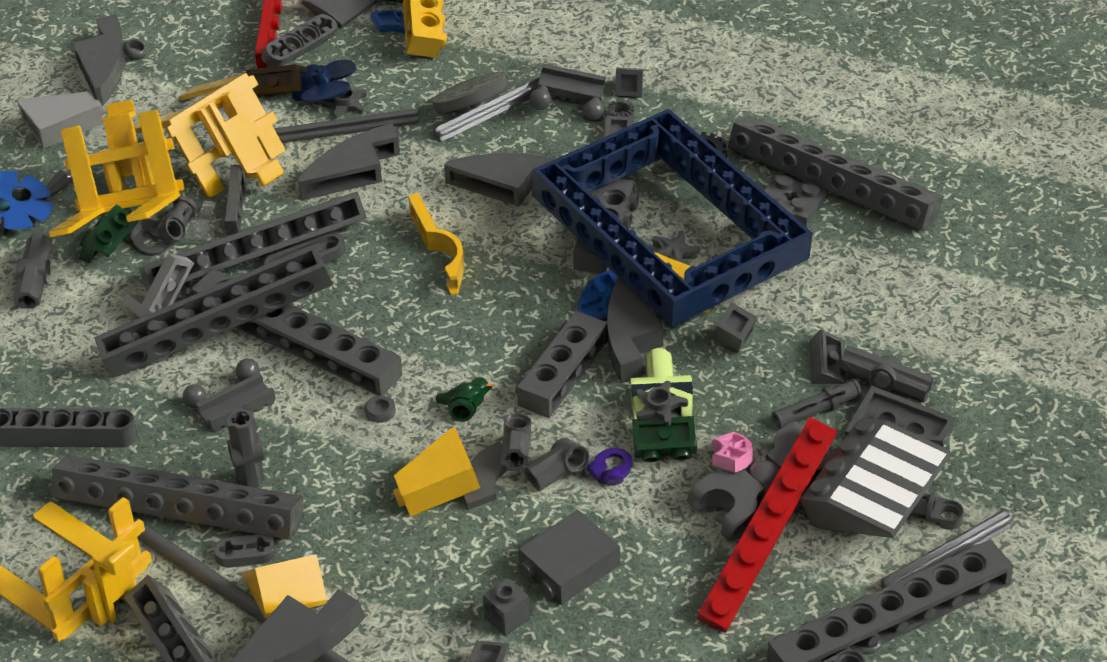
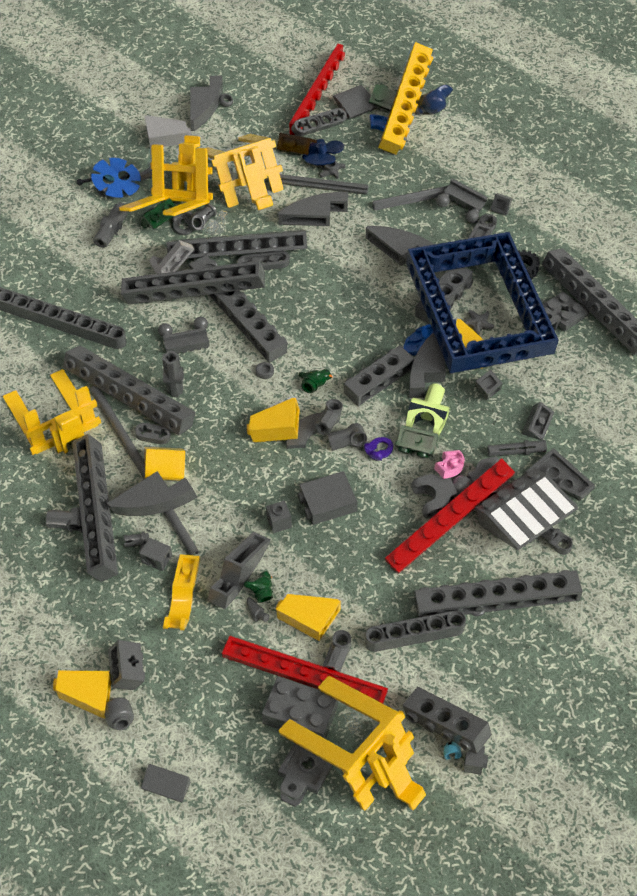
camera: 20 degrees right, 10 degrees up
(235, 200) = (239, 214): dark grey tile -> none
(438, 240) = (344, 275): yellow piece -> none
(470, 92) = (402, 184): dark grey piece -> none
(660, 403) = (421, 419): dark grey animal -> none
(900, 378) = (566, 442): dark grey piece -> none
(976, 535) = (555, 567): dark grey axle -> none

